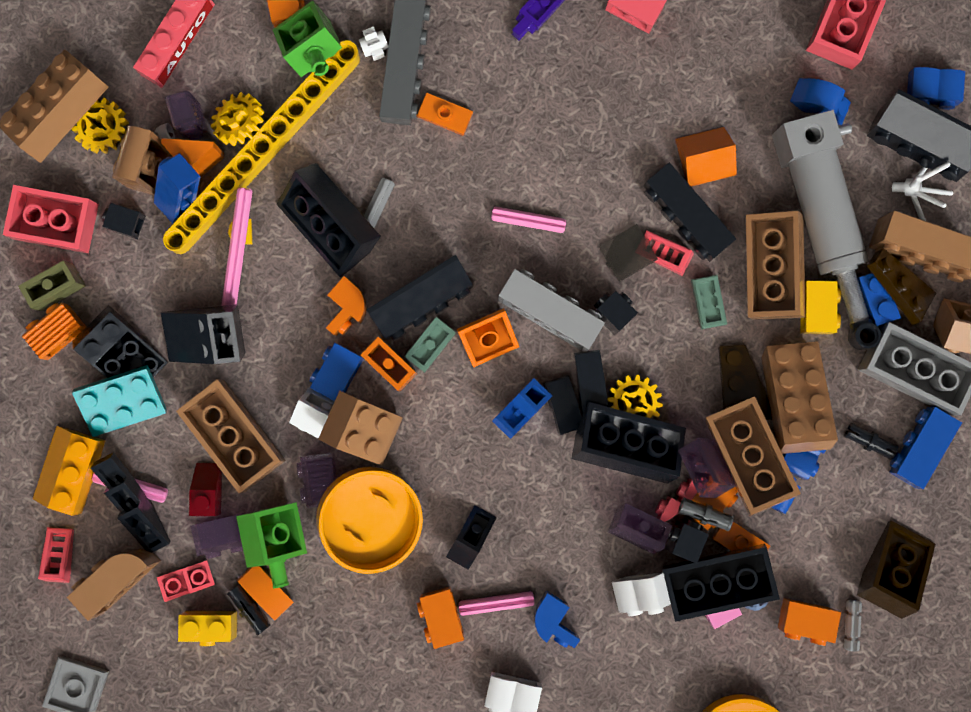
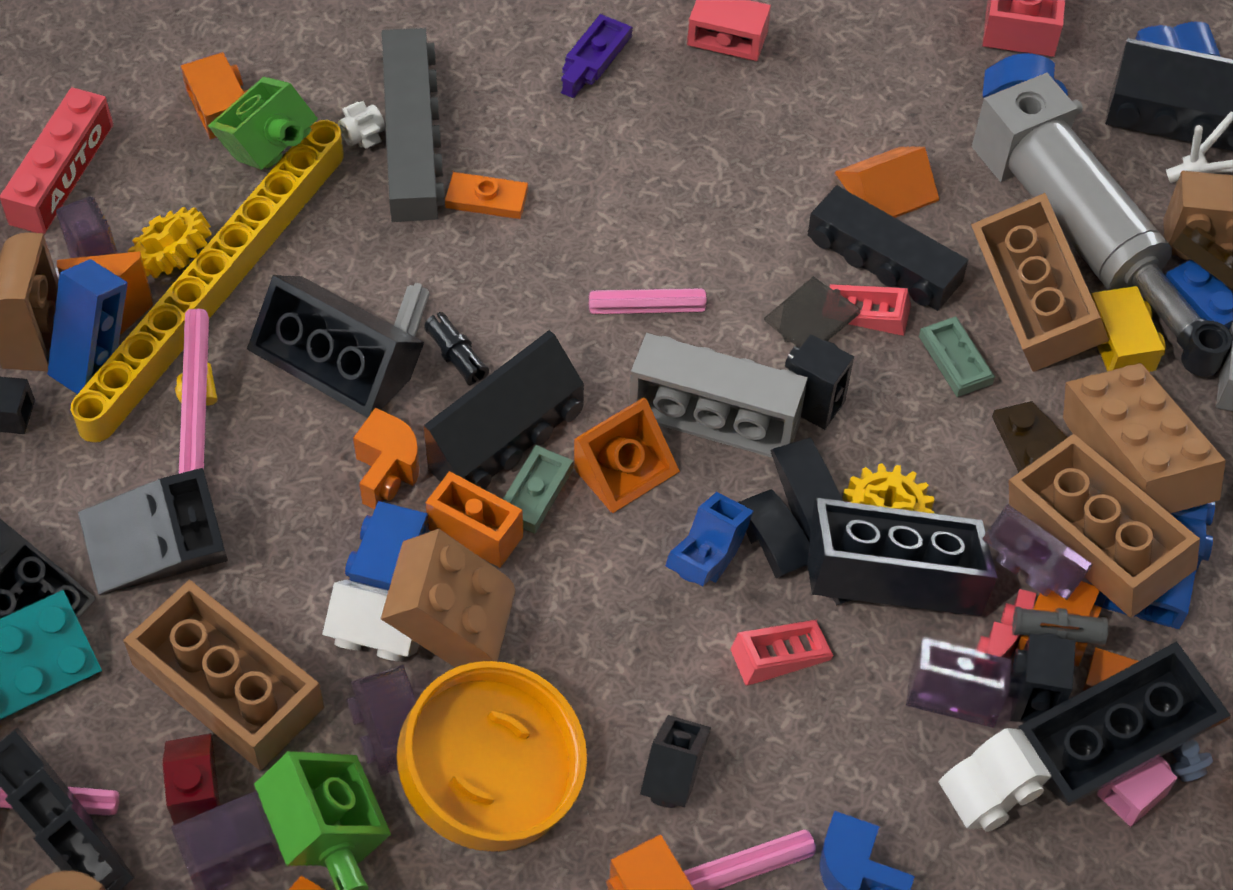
camera: 15 degrees left, 30 degrees down
(403, 232) = (456, 348): none -> black pin
(527, 485) = (757, 664): none -> coral slope

